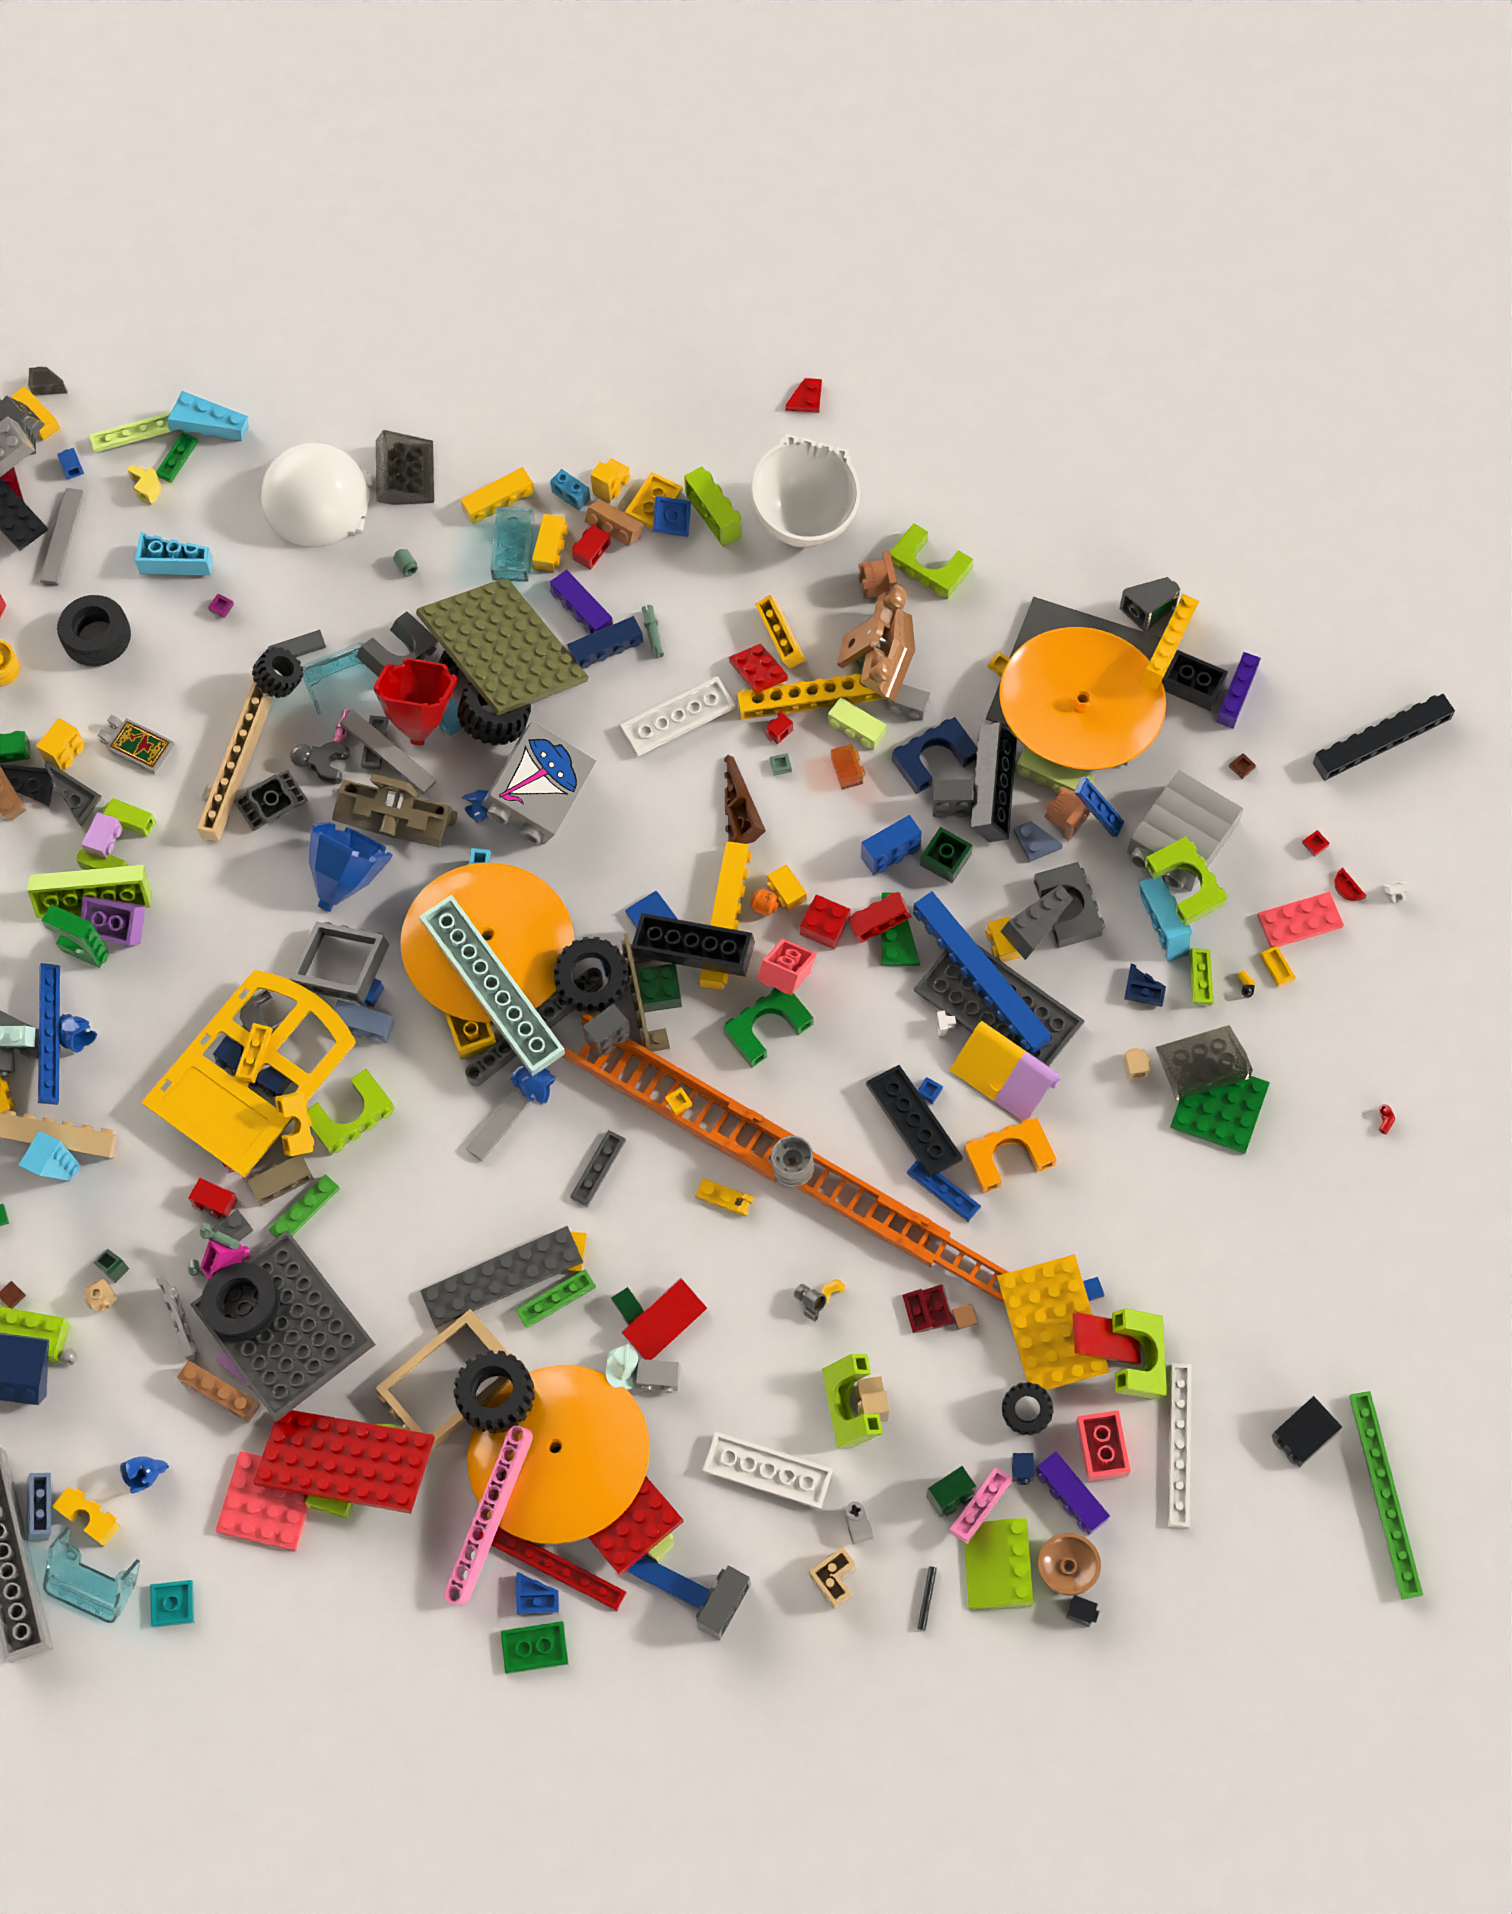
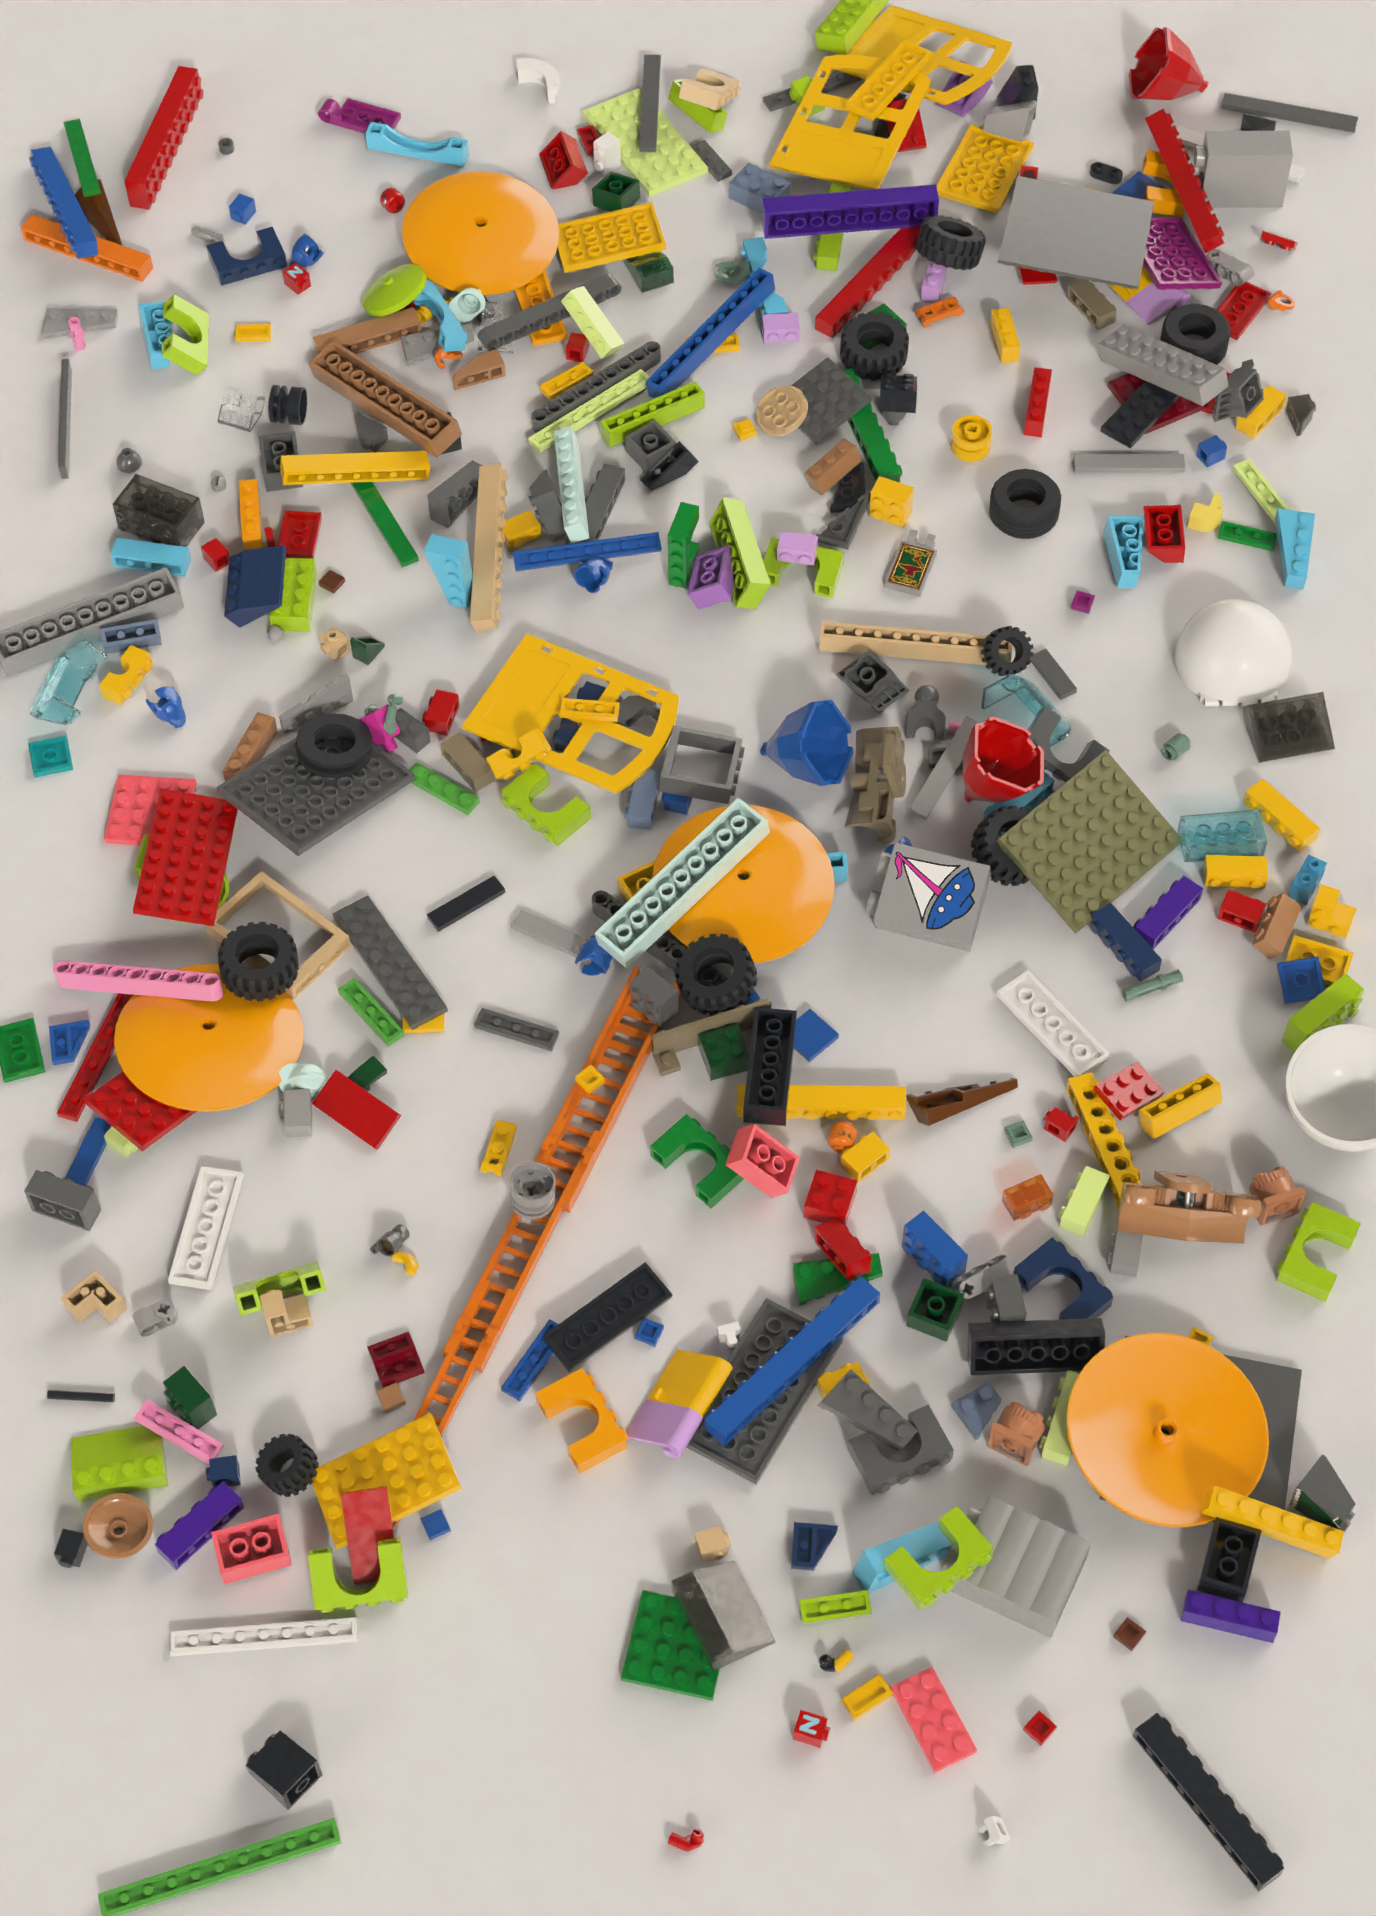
camera: 80 degrees right, 10 degrees down
(162, 518) = (1165, 532): none -> red slope
(446, 1199) = (466, 903): none -> black tile
(921, 812) = (980, 1276): none -> light grey piece
(1099, 807) = (1023, 1459): blue tile -> none
(1303, 1010) = (811, 1729): none -> red brick
(1347, 887) = (989, 1773): red tile -> none

